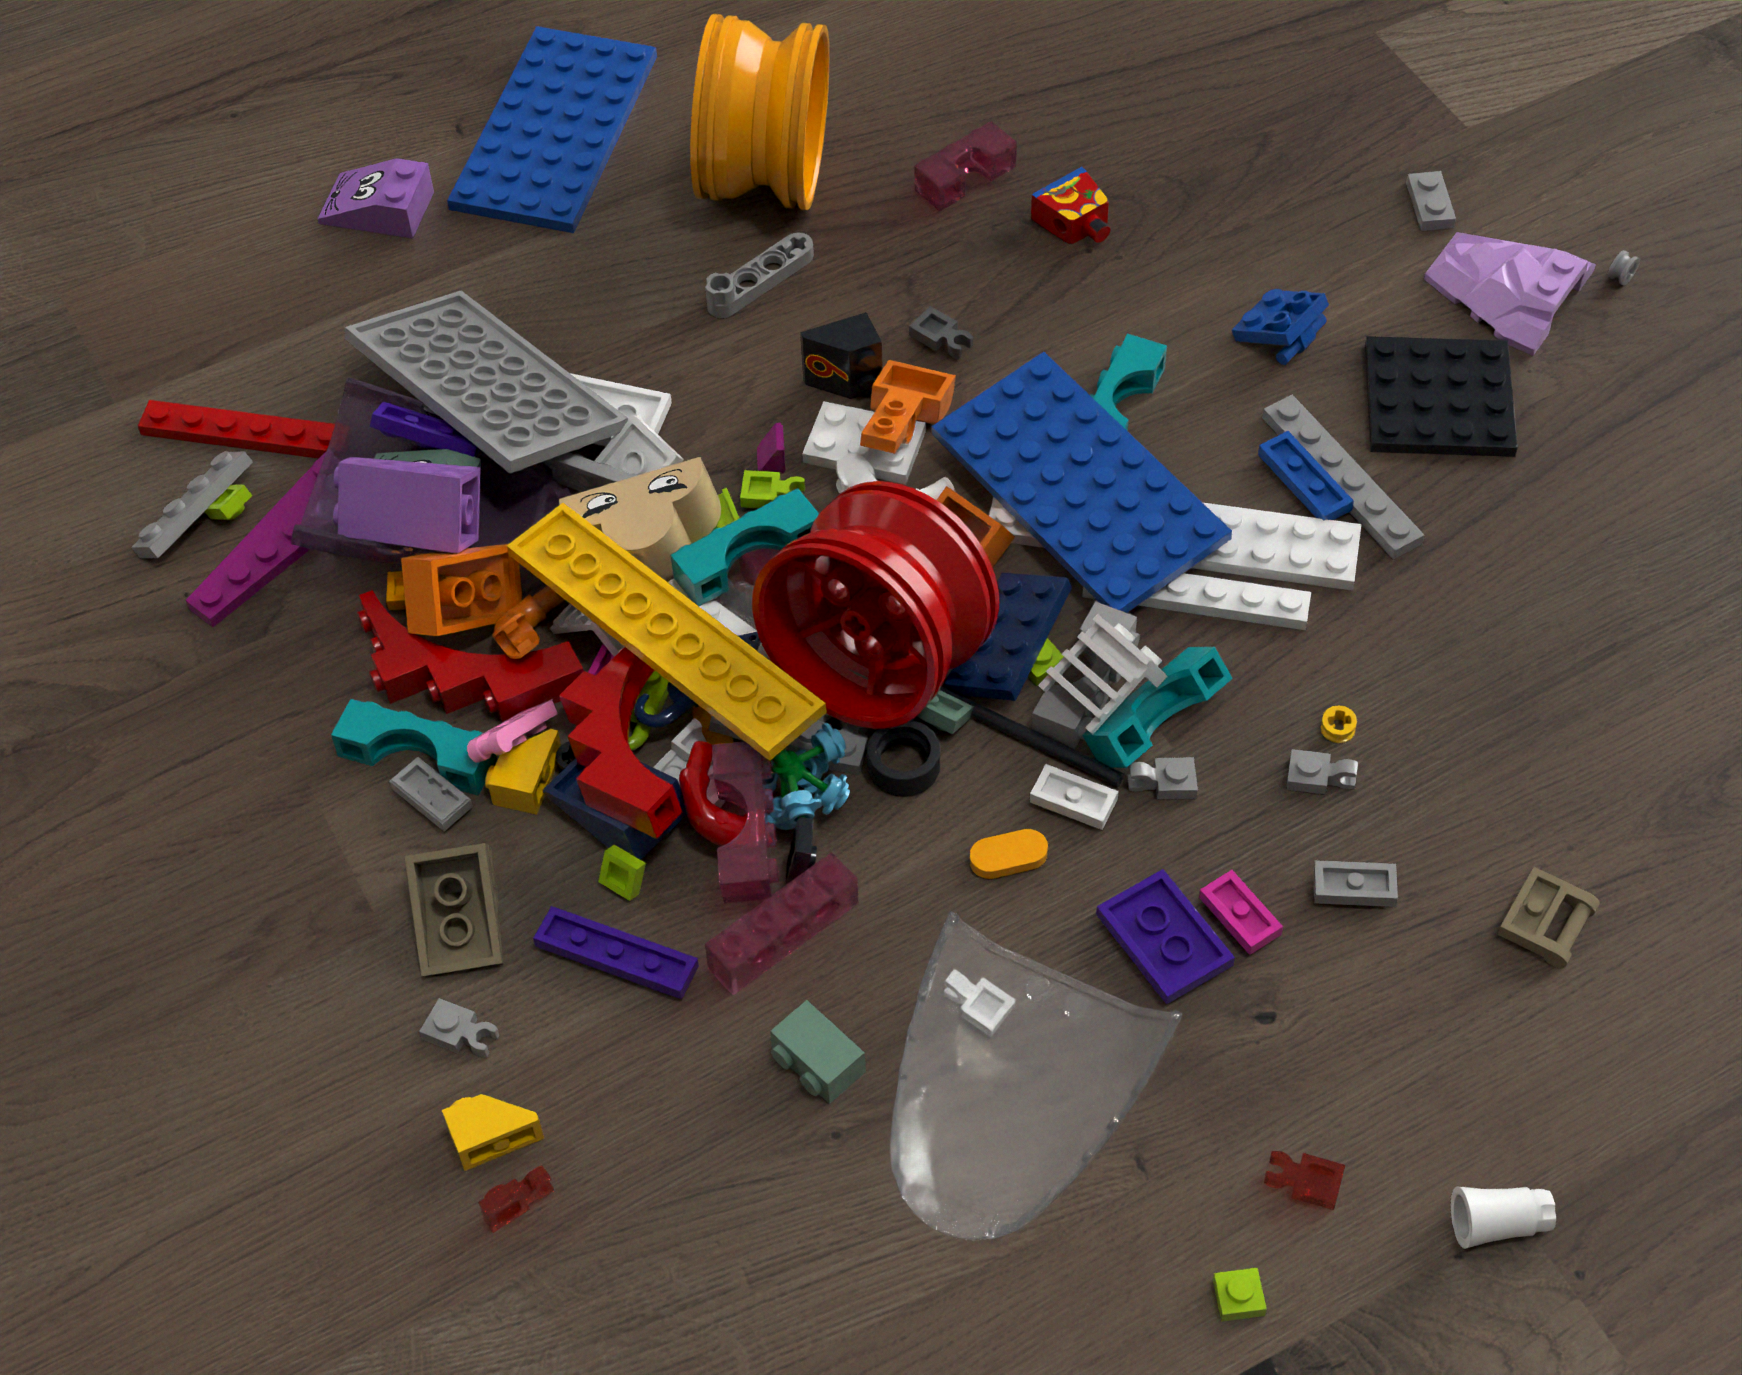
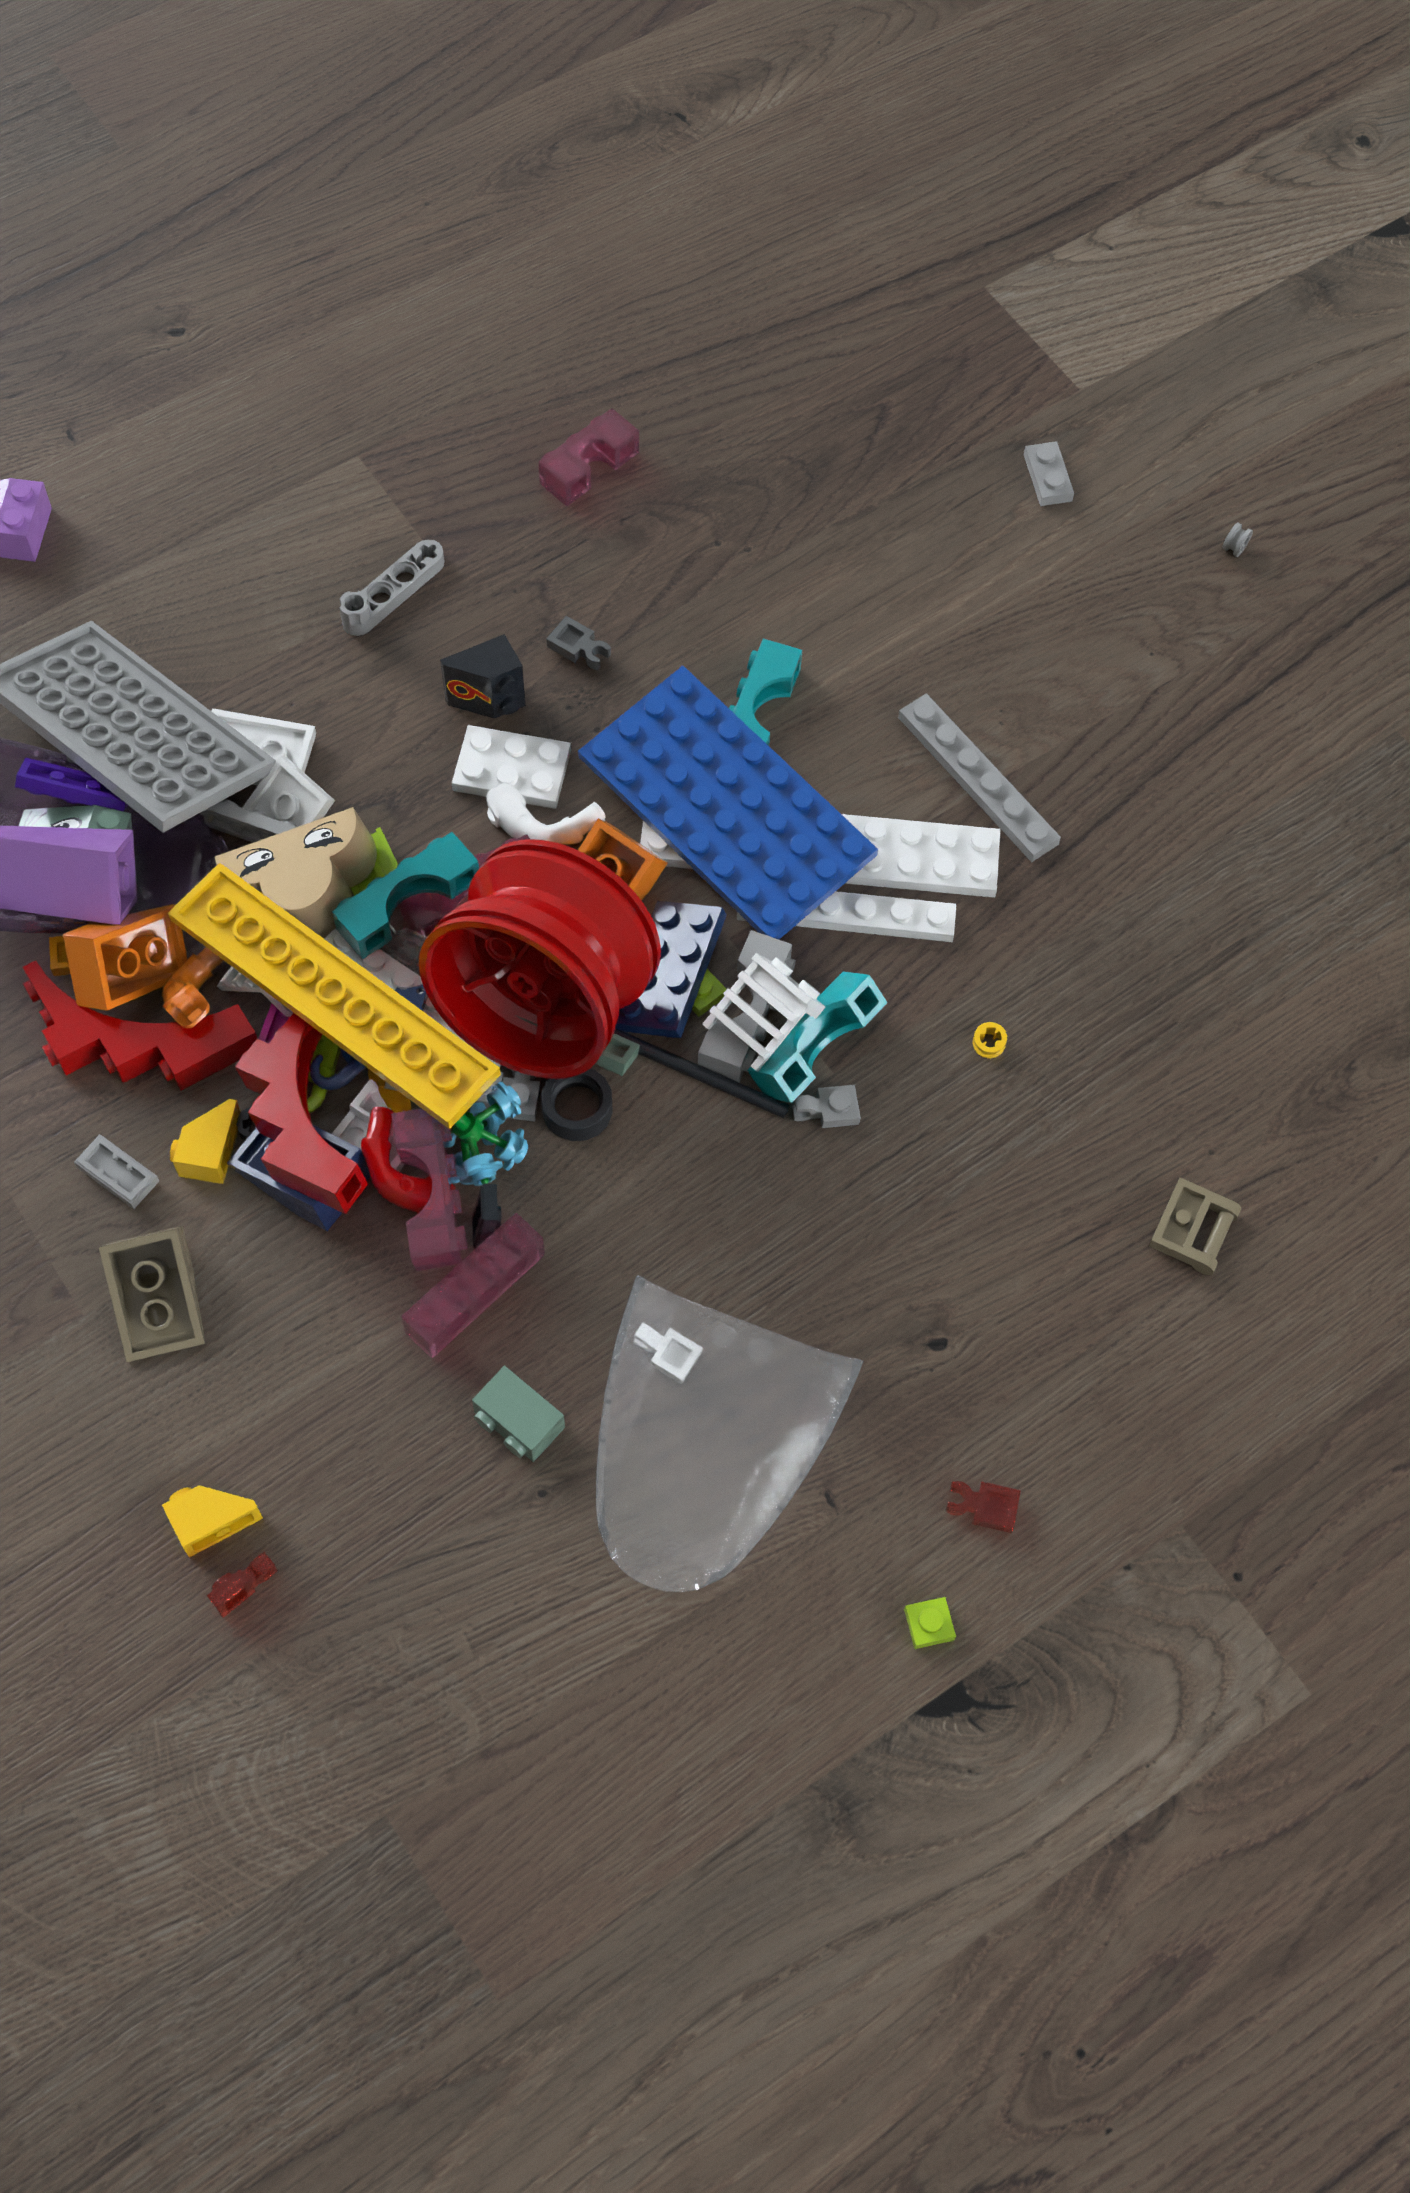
camera: 10 degrees left, 10 degrees up
(373, 732) = (49, 1112): teal arch -> none
(453, 1026) = (164, 1411): light grey plate -> none
(511, 732) = (190, 1105): bright pink plate -> none
(553, 129) = (167, 432): blue plate -> none
(616, 952) = (315, 1325): dark purple plate -> none
(622, 872) = (313, 1242): lime plate -> none
(759, 111) = (378, 416): light orange wheel -> none
(764, 486) = (418, 824): lime plate -> none
(772, 451) = (421, 782): magenta slope -> none
(900, 399) = (547, 717): orange plate -> none
(1008, 853) = (684, 1195): light orange tile -> none
(1072, 208) = (699, 499): red torso -> none
(1073, 796) = (743, 1133): white plate -> none
(1165, 936) = (839, 1271): dark purple plate -> none
(1240, 912) = (908, 1241): dark pink plate -> none
(1284, 319) = (913, 614): blue plate -> none
(1305, 477) = (944, 782): blue plate -> none
(1313, 772) = (968, 1092): light grey plate -> none
(1355, 883) = (1014, 1204): light grey plate -> none
(1440, 396) = (1068, 686): black plate -> none
(1500, 1214) = (1164, 1527): white plant -> none
(1508, 284) = (1127, 562): lavender wedge -> none

